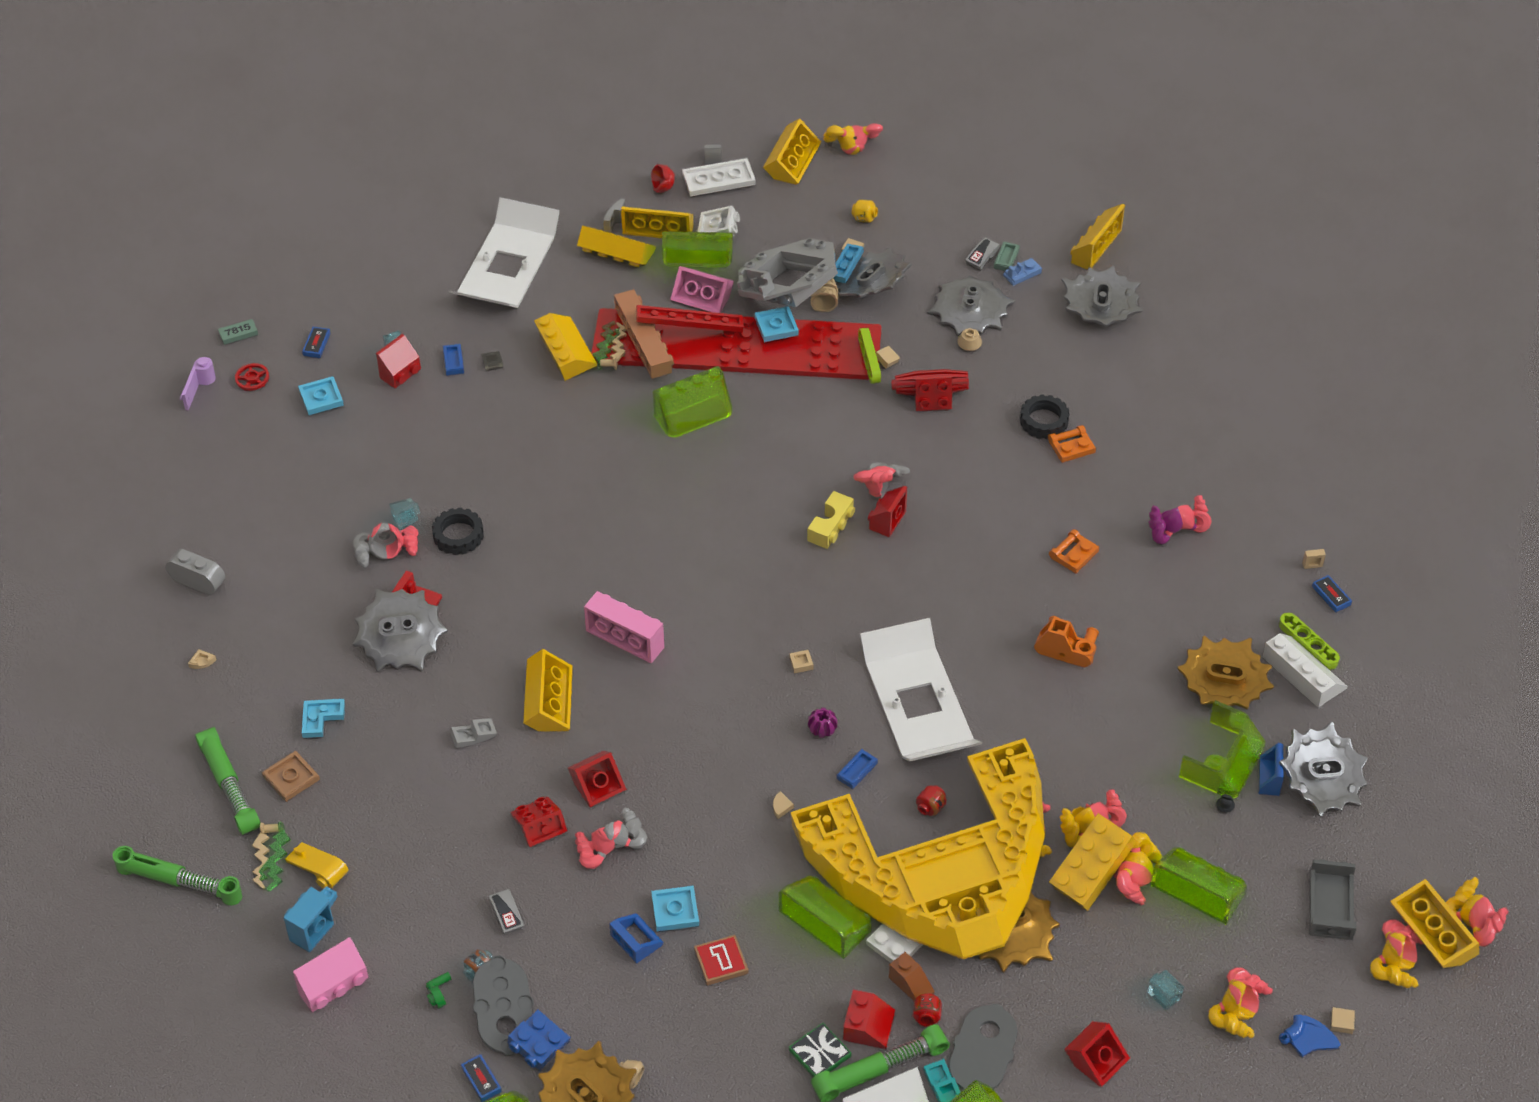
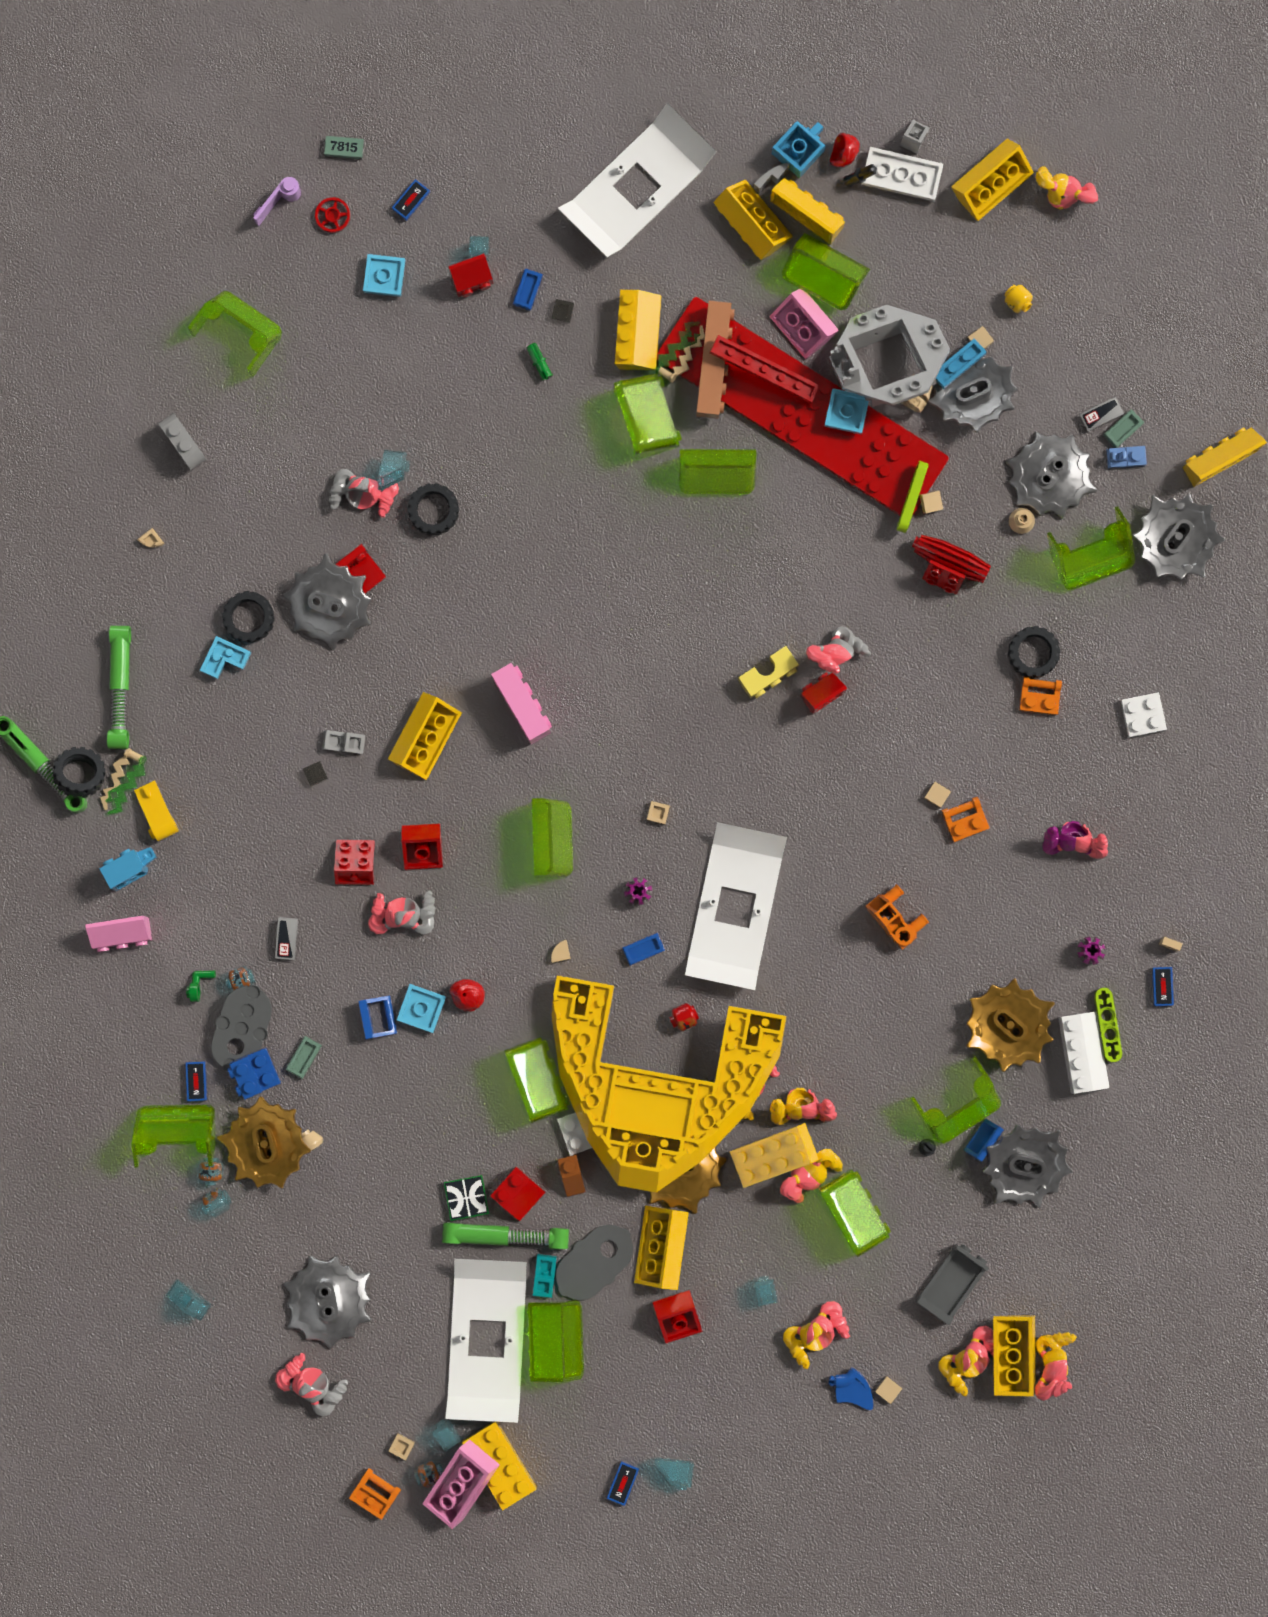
camera: 25 degrees right, 35 degrees up
(205, 469) = (265, 331): none -> clear neon green windscreen
(221, 870) = (75, 789): none -> black tyre
(290, 776) = (174, 706): medium nougat tile -> none
(326, 660) = (238, 599): none -> black tyre
(459, 769) = (315, 774): none -> clear smoke tile
(492, 398) = (539, 361): none -> green axle
(581, 1006) = (303, 1057): none -> sand green tile
(610, 392) = (646, 415): none -> clear neon green windscreen
(625, 186) = (799, 147): none -> dark azure hinge
(686, 185) = (860, 175): none -> black axle
(712, 877) = (467, 994): none -> red hair
(713, 717) = (552, 838): none -> clear neon green windscreen
(719, 220) = (865, 242): white plate -> none
(721, 960) = (433, 1074): red tile -> none
(927, 1009) = (568, 1209): red head -> none
(1037, 545) = (937, 794): none -> tan tile
(1039, 1000) = (661, 1247): none -> yellow slope
(1058, 331) = (1096, 559): none -> clear neon green windscreen
(1165, 421) = (1143, 715): none -> white plate
(1252, 591) = (1087, 955): none -> magenta piece

